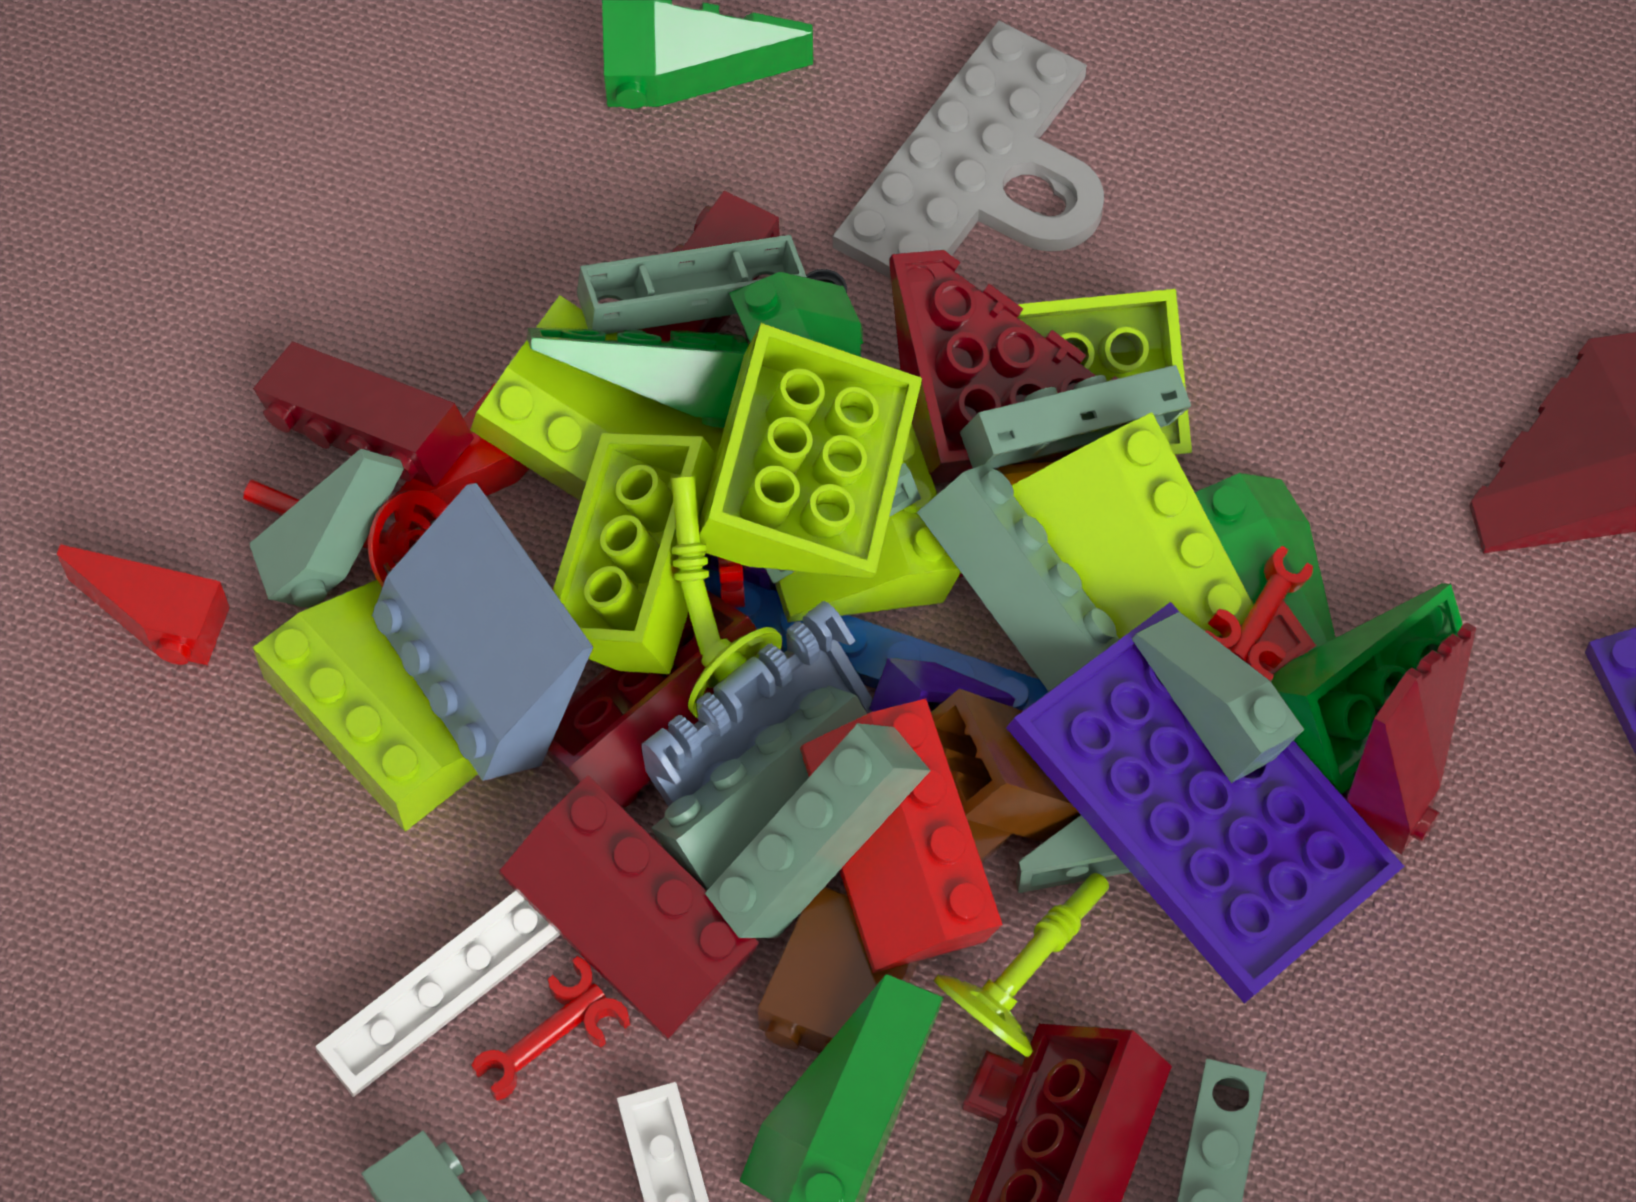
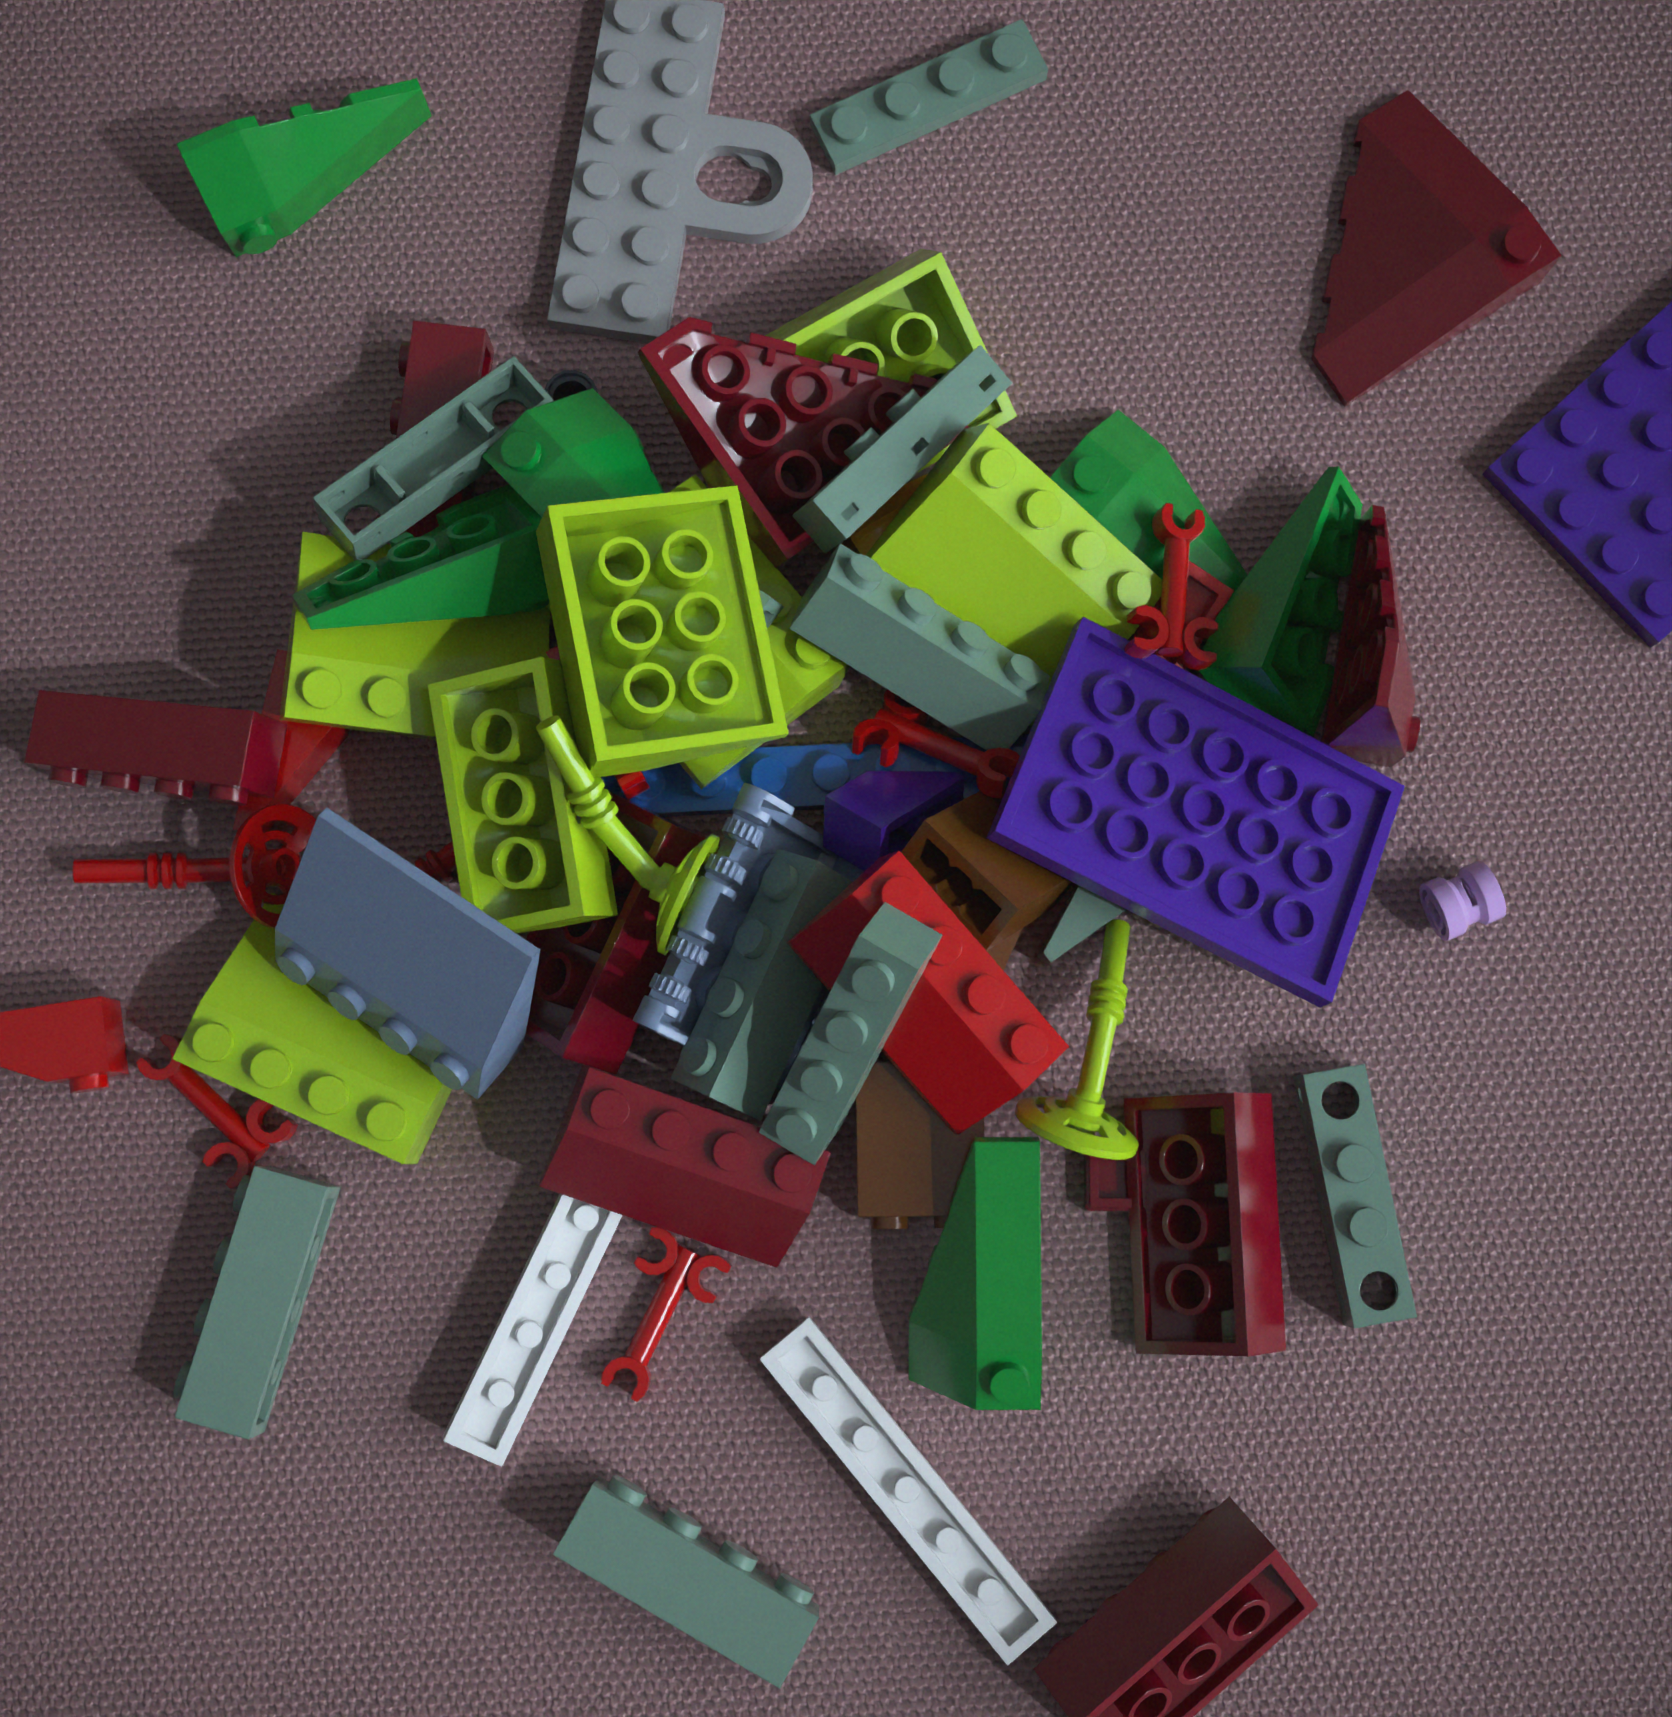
camera: 25 degrees left, 20 degrees up
(219, 874) = (255, 1302): none -> sand green brick
(277, 751) = (248, 1136): none -> red bar
(324, 531) = (182, 900): sand green slope -> none
(992, 651) = (906, 725): none -> red bar
(1220, 695) = (1176, 704): sand green slope -> none
(1226, 191) = (928, 96): none -> sand green plate
(1416, 979) = (1462, 900): none -> lavender wheel

